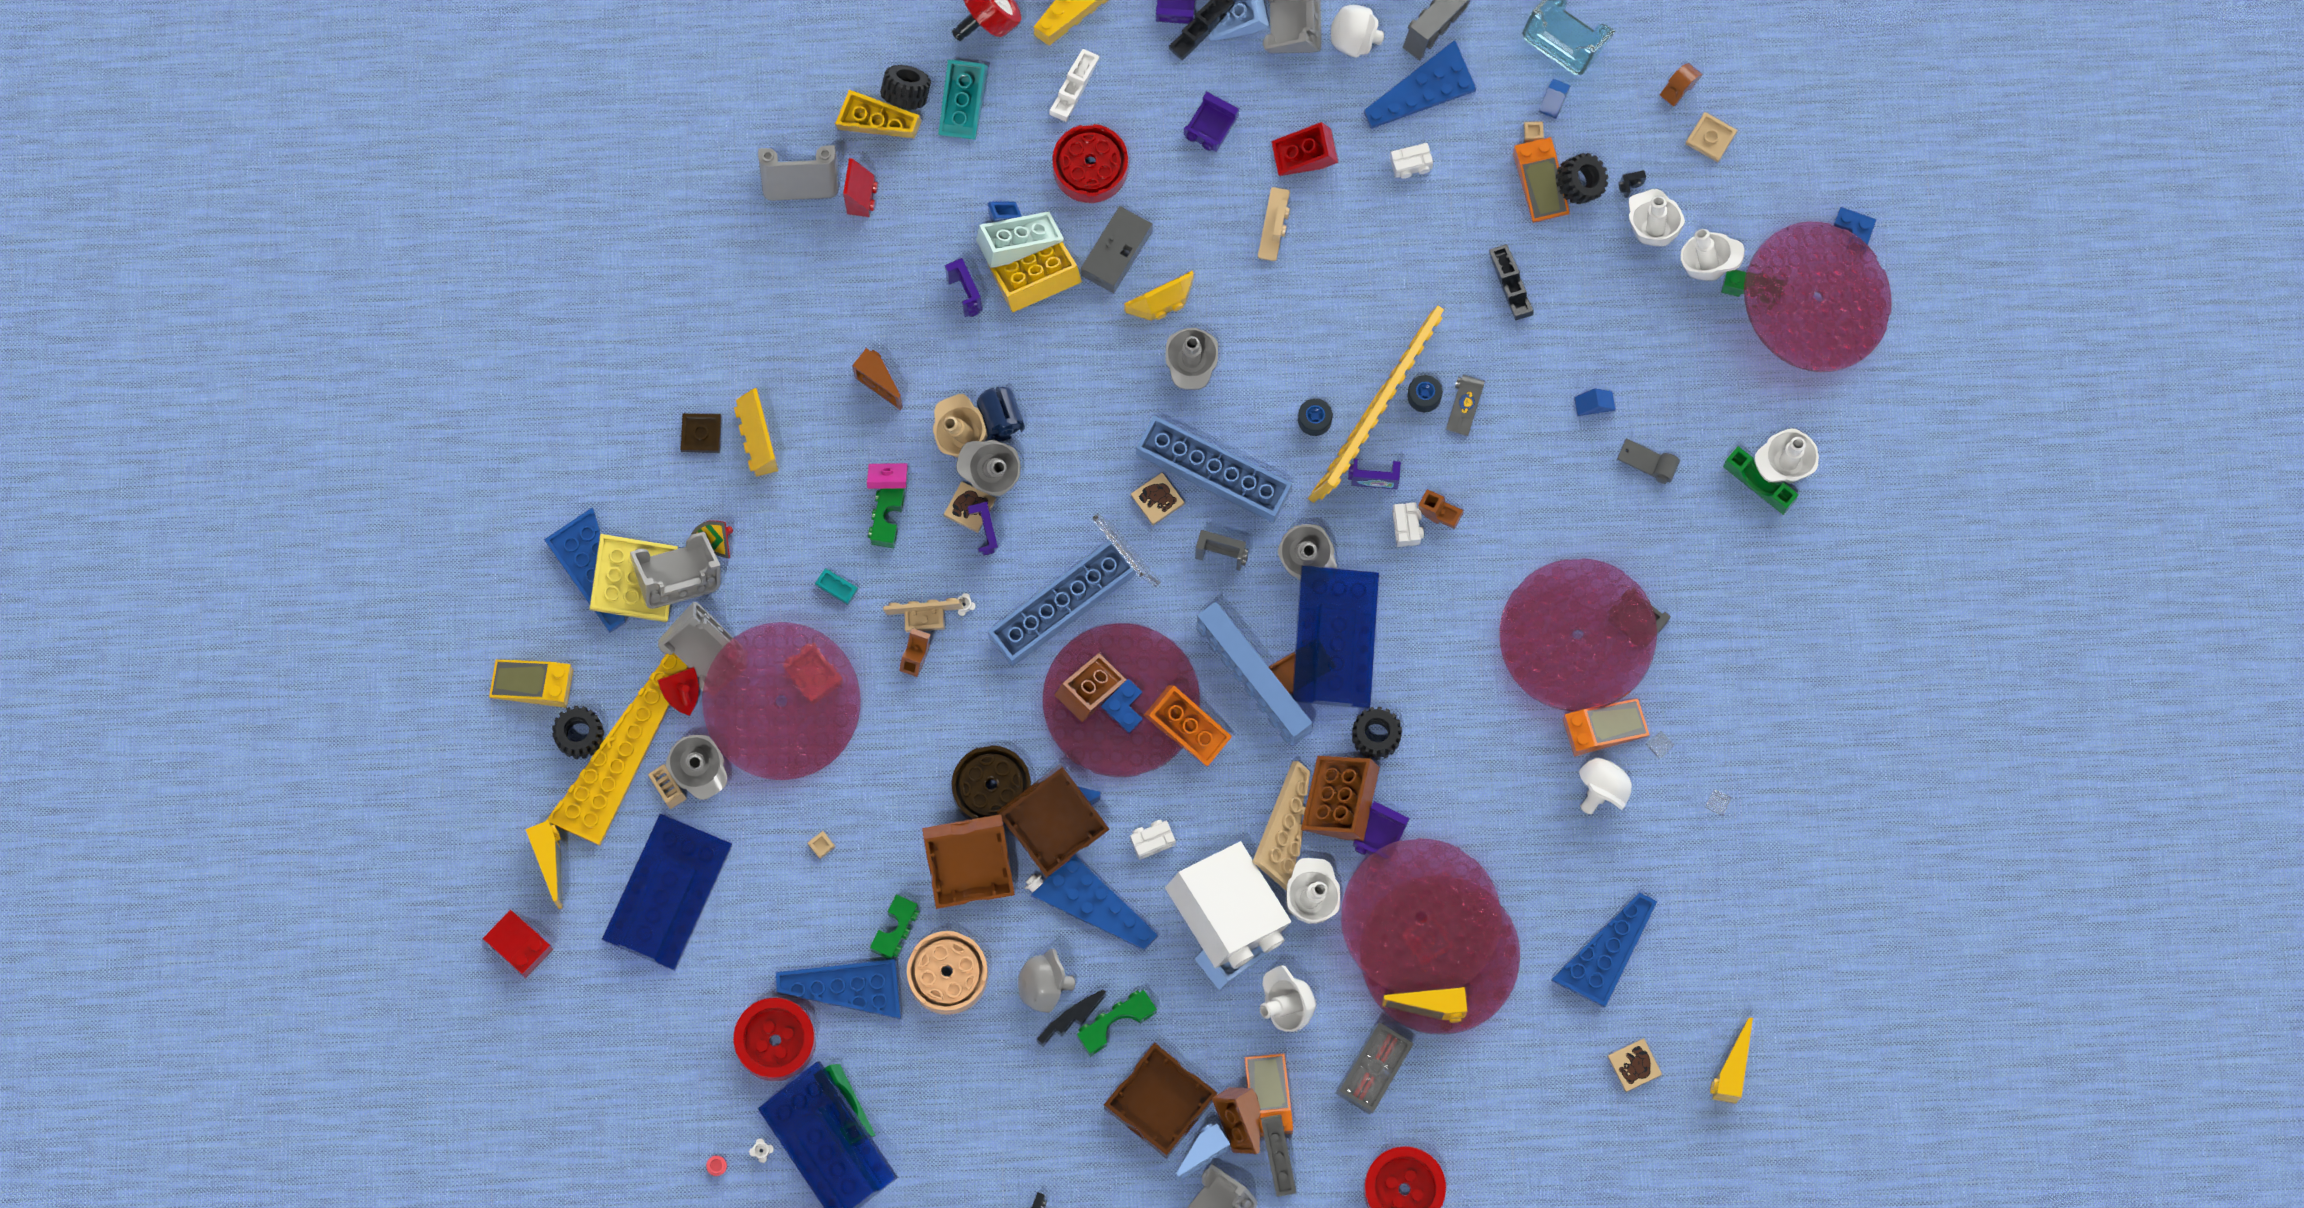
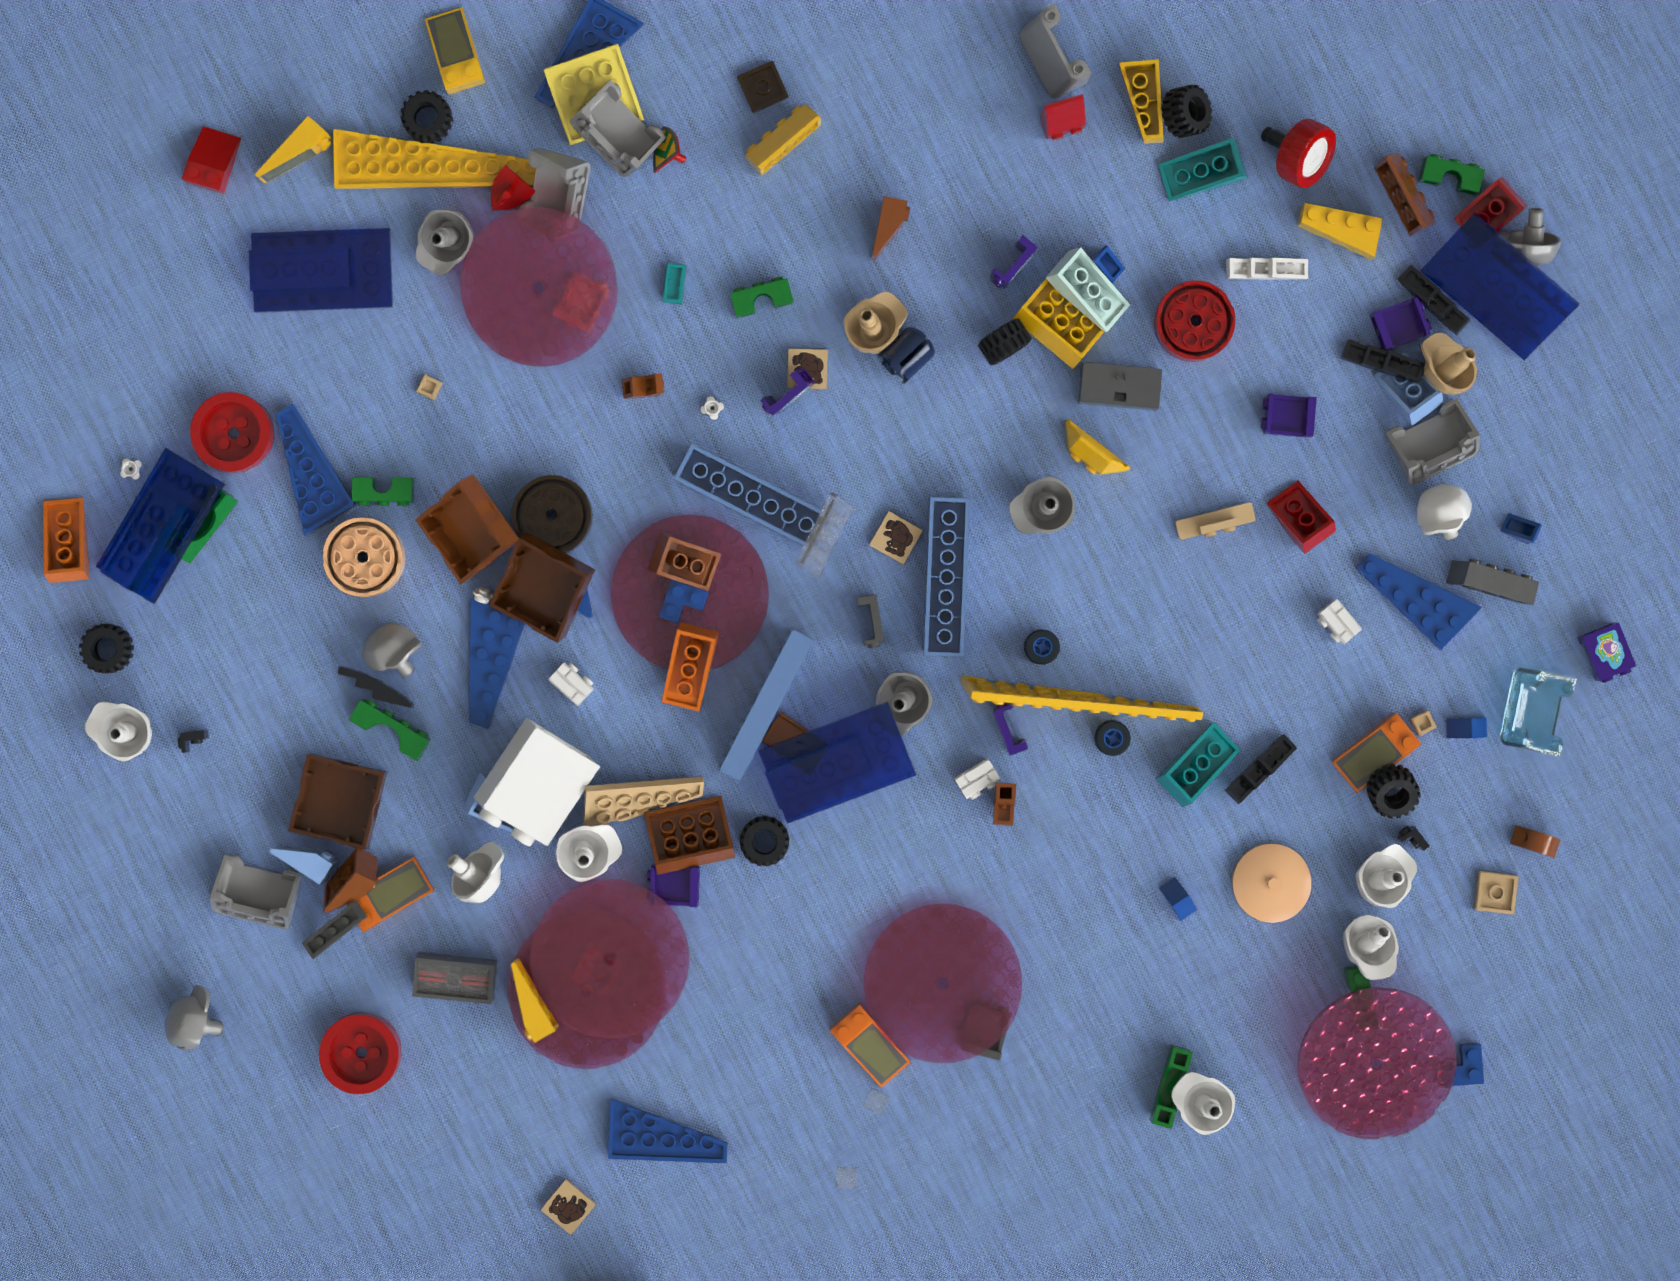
camera: 65 degrees right, 15 degrees up
(672, 797) = (403, 232): tan slope -> none
(716, 1165) = (98, 436): coral plate -> none
(887, 476) = (798, 279): dark pink plate -> none
(924, 616) = (681, 378): tan bracket -> none
(989, 466) = (849, 369): light grey piece -> none
(1030, 325) = (1004, 341): none -> black tyre
(1465, 404) = (1120, 780): dark grey door -> none
(1483, 333) = (1198, 765): none -> teal slope
(1604, 782) = (810, 1071): white piece -> none
(1616, 318) = (1271, 882): none -> light nougat dish
(1656, 465) = (1143, 974): dark grey door -> none

